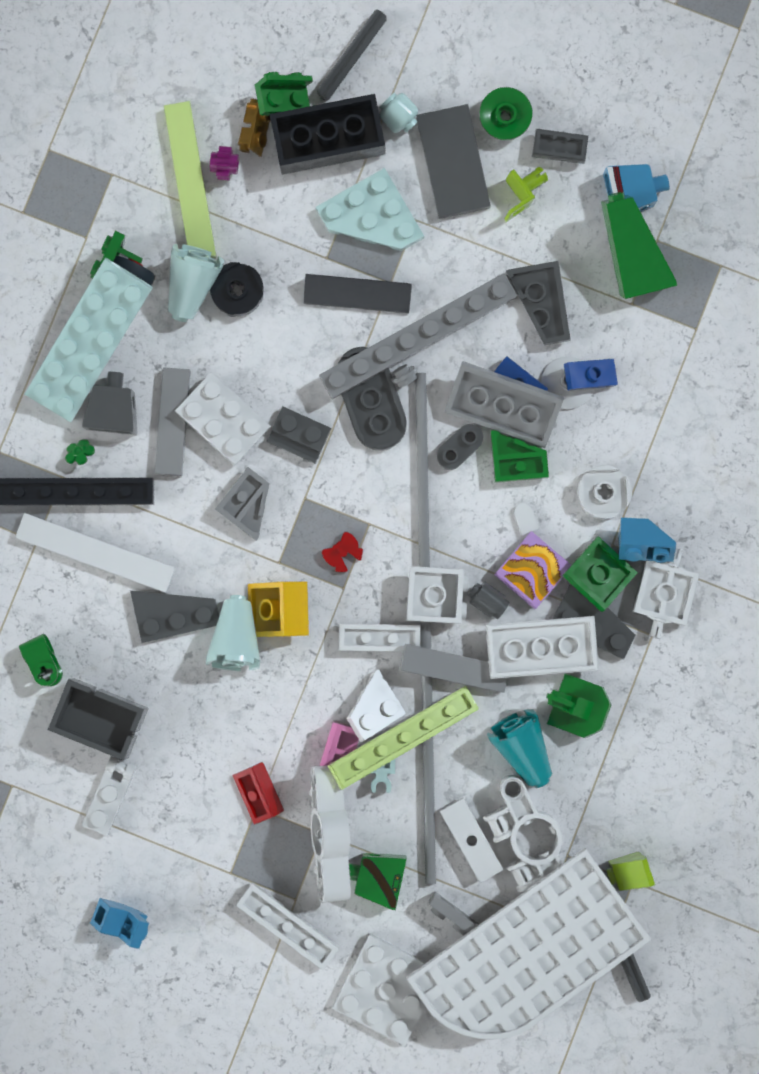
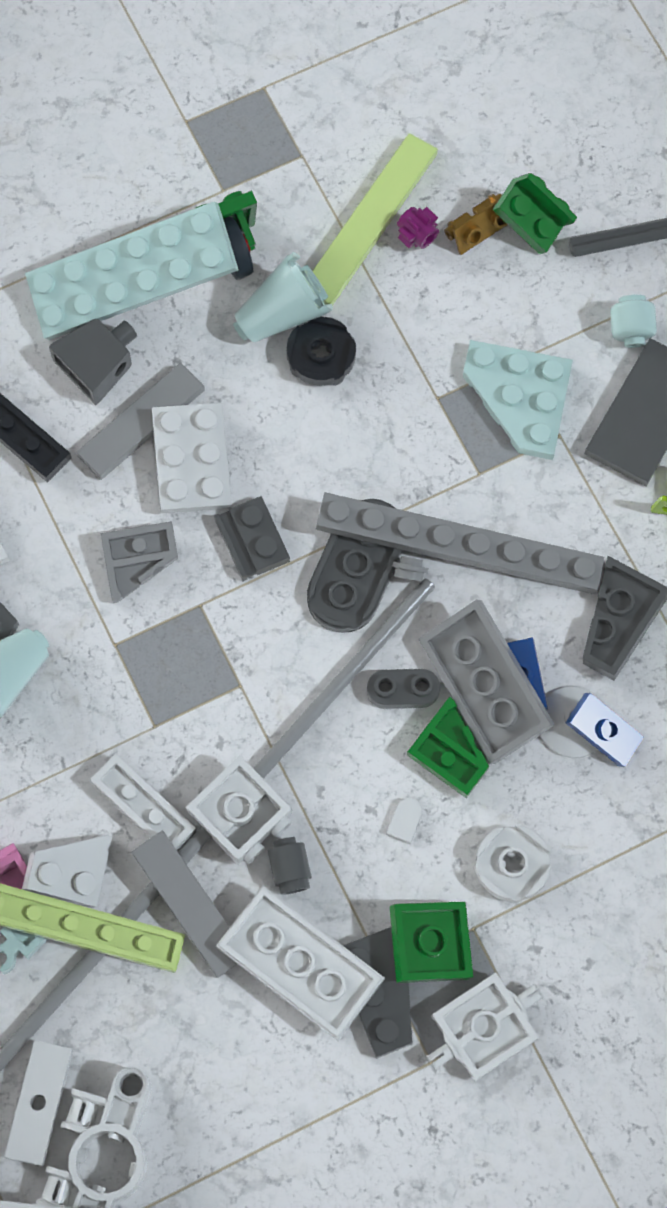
camera: 35 degrees right, 15 degrees down
(79, 452) = (23, 371): green plant -> none
(279, 608) = (71, 686): yellow slope -> none
(328, 134) = (543, 281): black brick -> none
(334, 555) = (199, 685): red piece -> none
(357, 293) = (437, 454): black slope -> none
(523, 747) = (182, 1053): teal cone -> none
(533, 570) = (363, 876): slope -> none
(578, 707) = (282, 1062): green piece -> none
(644, 541) = (508, 947): dark azure slope -> none

